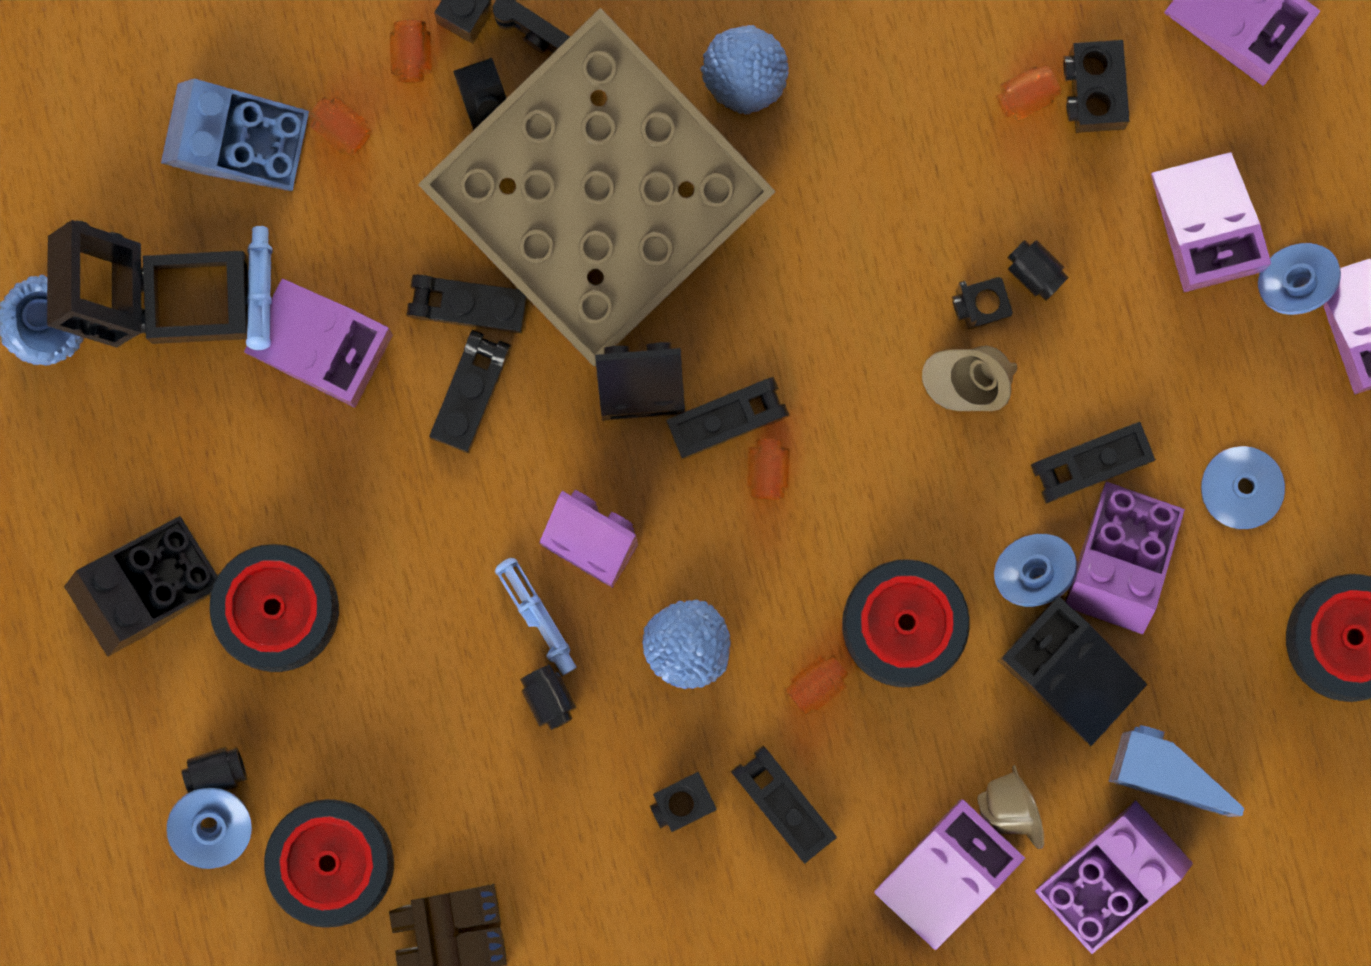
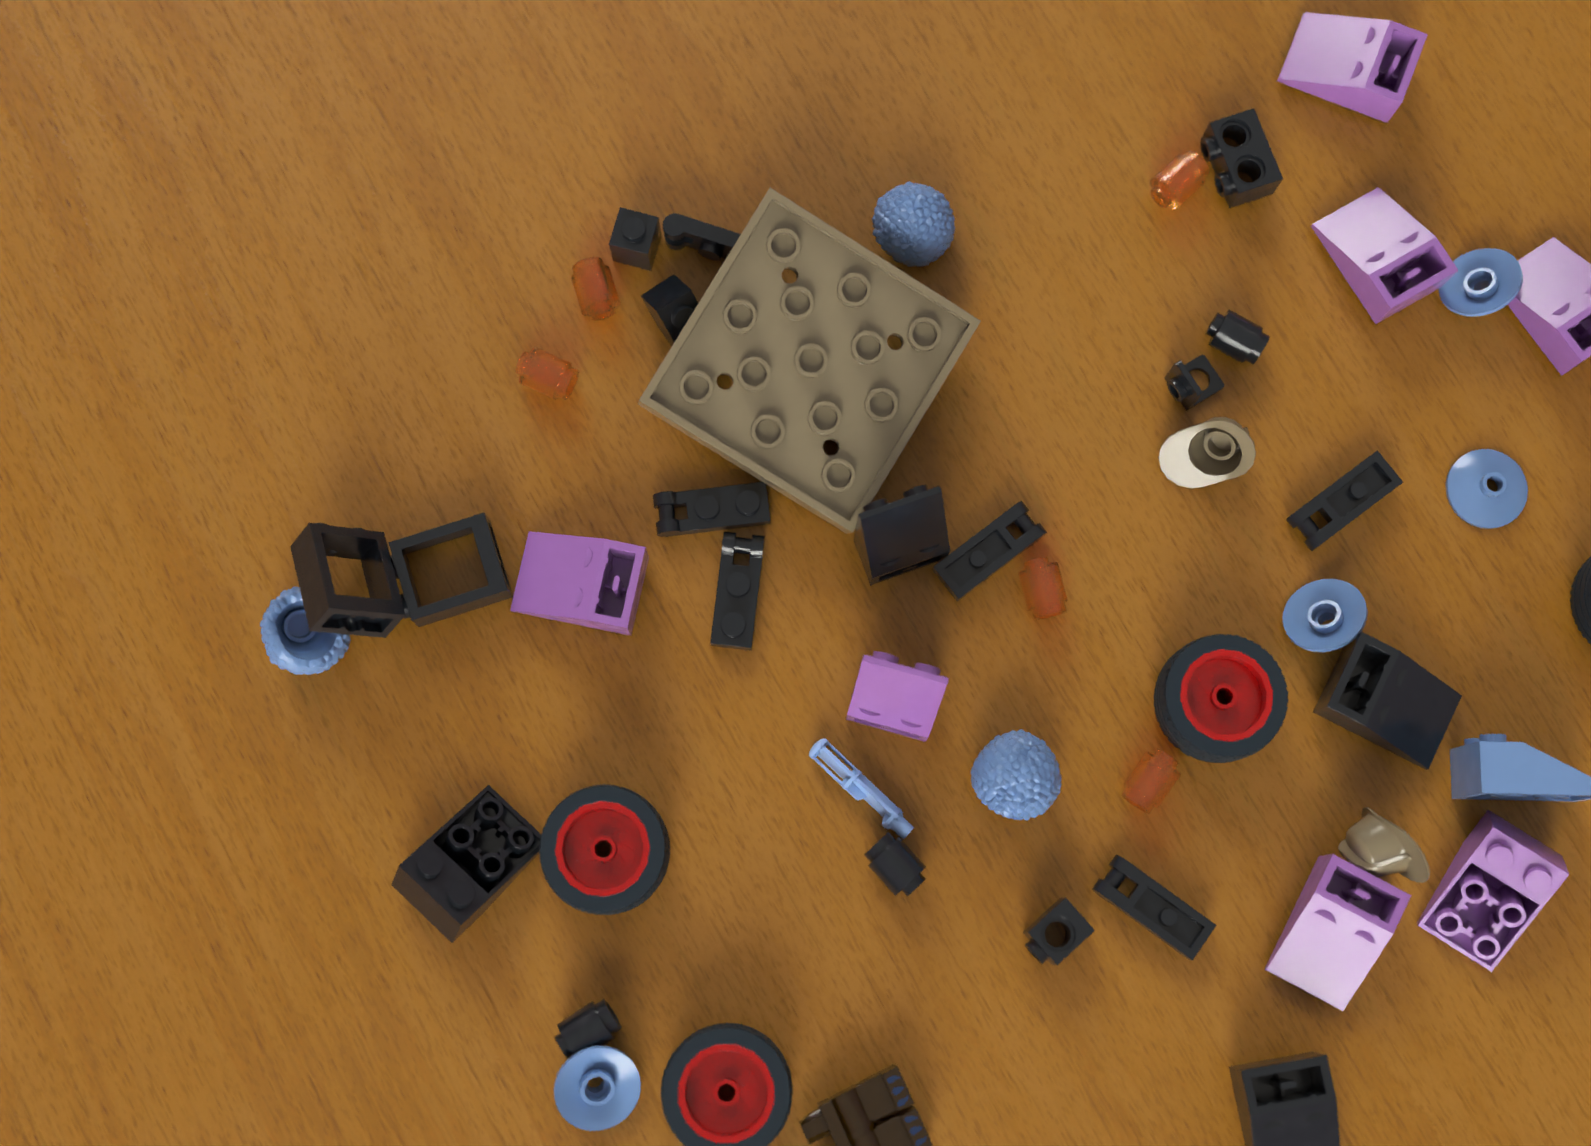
camera: 20 degrees left, 5 degrees down
(234, 135) = (447, 409): medium blue slope -> none
(259, 290) = (509, 546): light blue piece -> none
(1125, 558) = (1405, 582): medium lavender slope -> none

